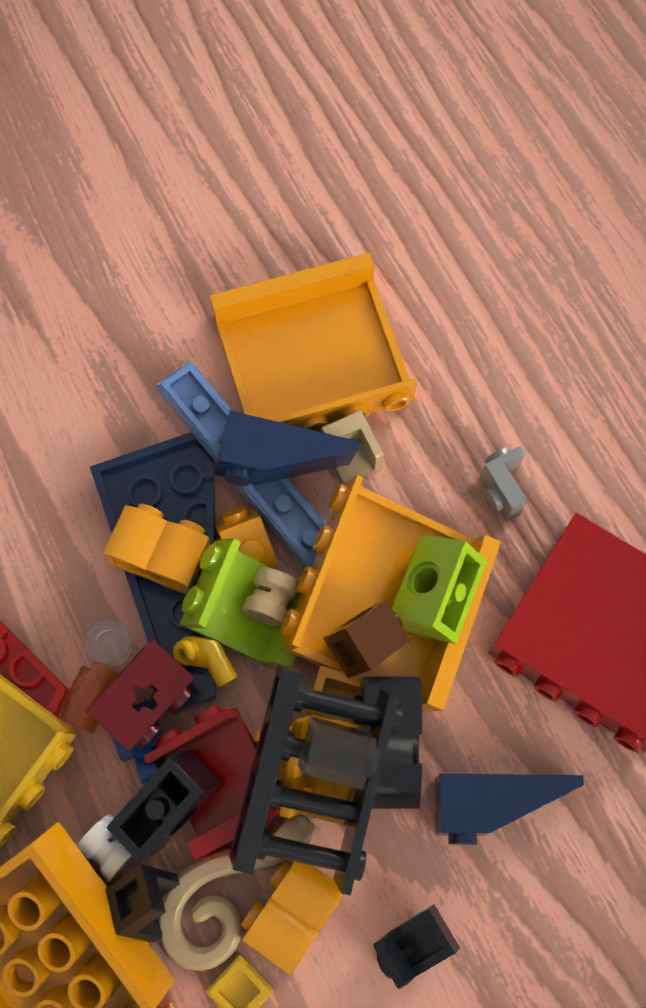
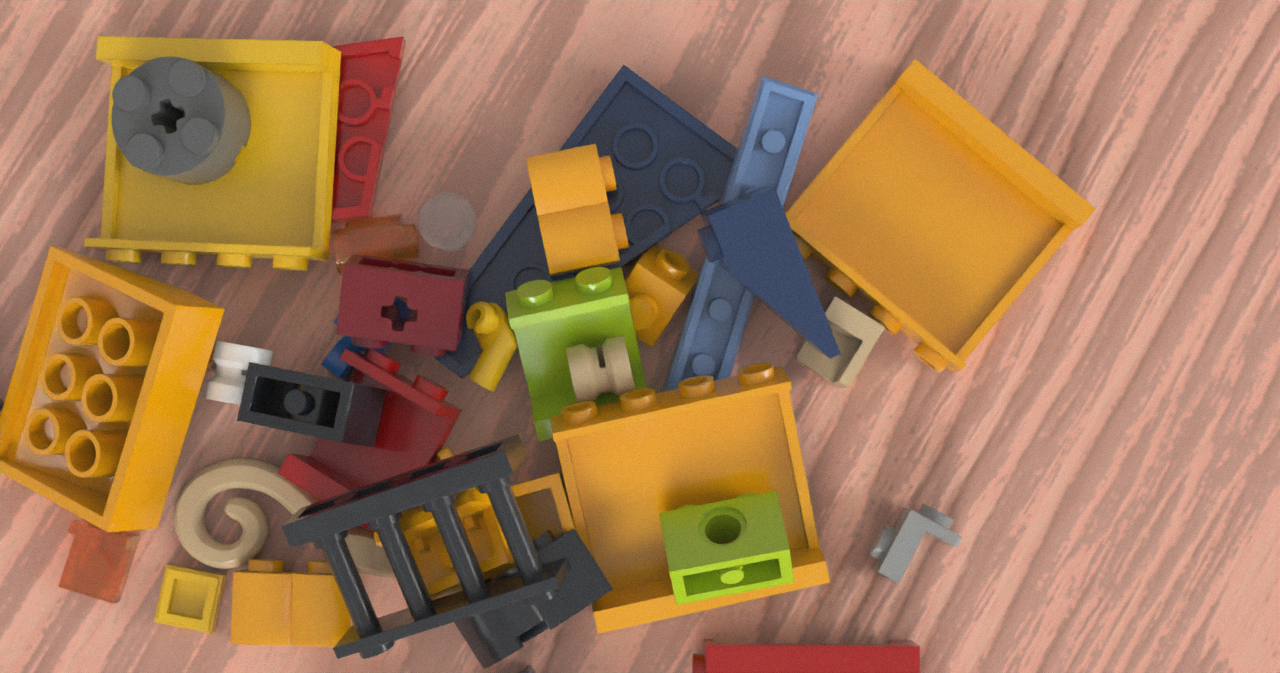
camera: 55 degrees right, 15 degrees up
(138, 902) = (200, 443): black panel -> none
(338, 753) = (459, 561): clear smoke brick -> none
(367, 639) = (615, 507): reddish brown brick -> none

